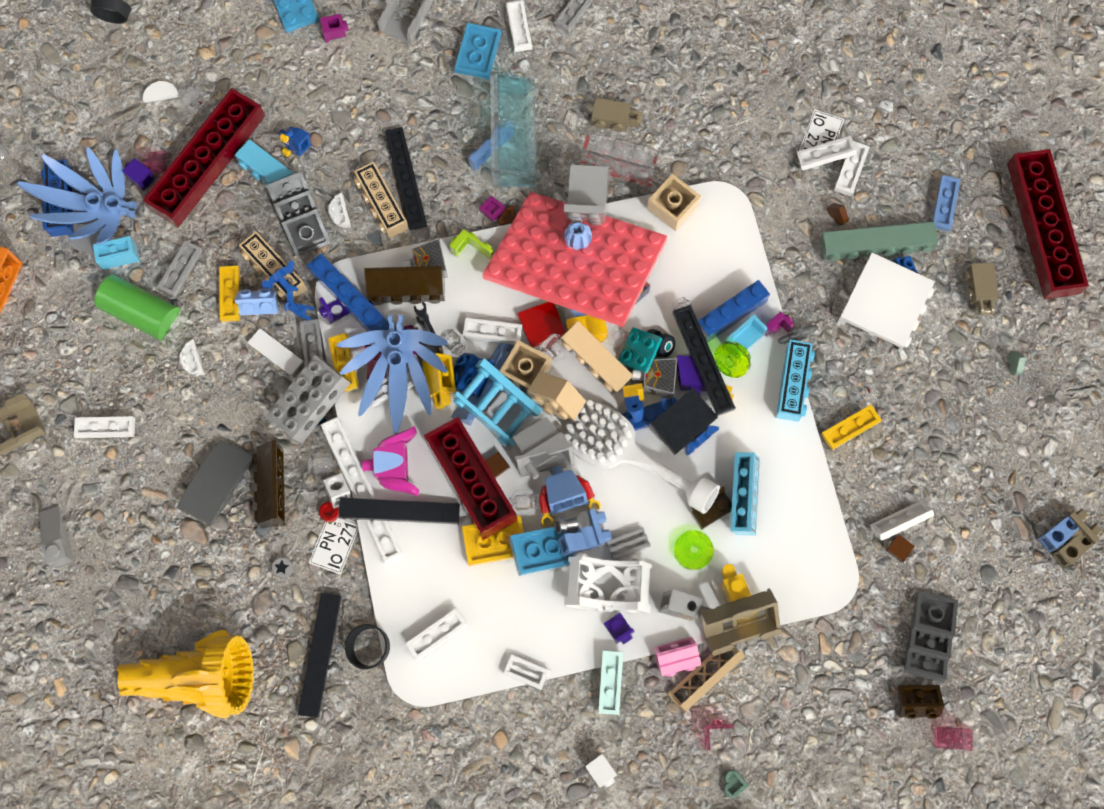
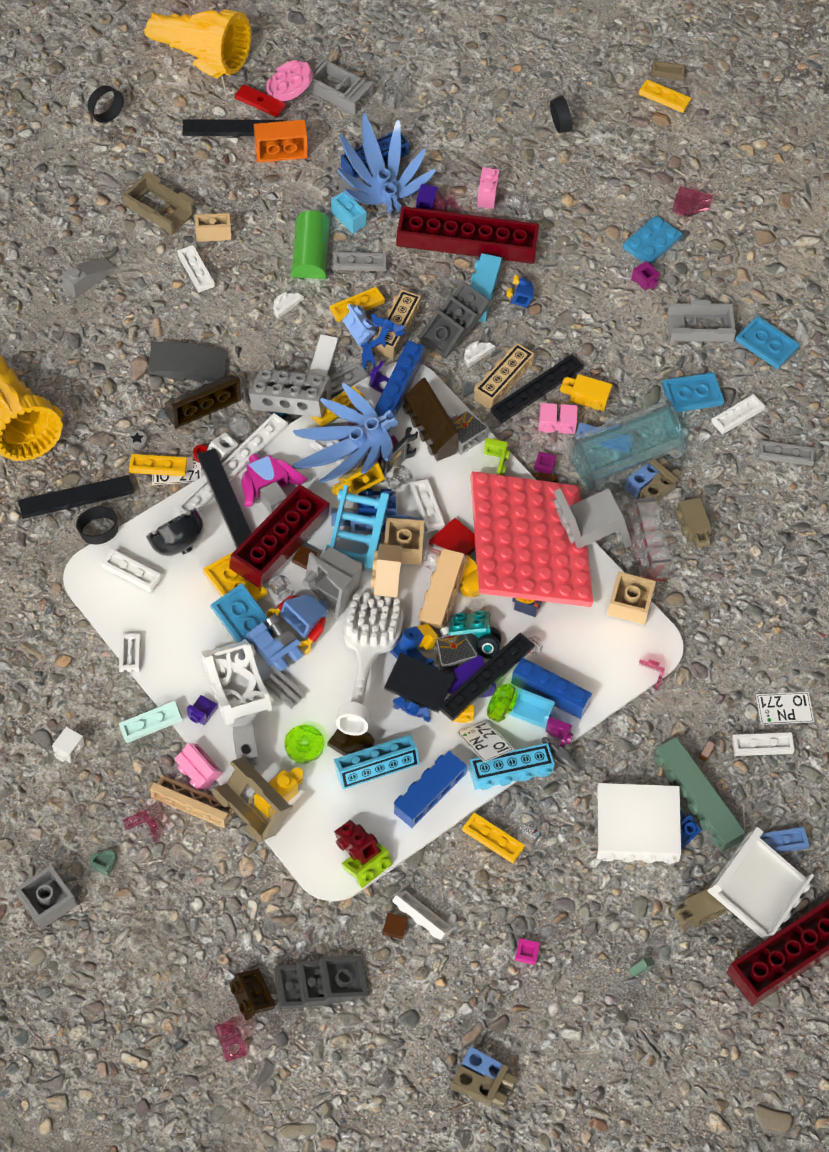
camera: 60 degrees right, 15 degrees down
(65, 389) = (213, 227): none -> tan brick
(160, 91) = (511, 181): white tile -> none
(161, 116) = (488, 188): none -> bright pink piece
(323, 559) = (158, 465): none -> yellow plate
(420, 466) = (272, 496): none -> light grey brick
(428, 573) = (177, 534): none -> black cylinder
(434, 136) = (587, 391): none -> yellow brick
(448, 180) = (548, 418): none -> bright pink piece
(557, 122) = (653, 480): none -> dark tan hips
(577, 235) = (547, 525): light blue piece -> none
(745, 217) = (654, 665): none -> clear pink bracket
(761, 391) = (485, 740): none -> white sticker
(788, 459) = (429, 789): none -> blue brick
(811, 548) = (356, 842): none -> dark red brick
(826, 153) = (763, 713): white plate -> none
(836, 545) = (374, 867): none -> lime bracket
(968, 448) = (527, 951): none -> dark pink plate
(987, 234) = (759, 886): none -> white panel

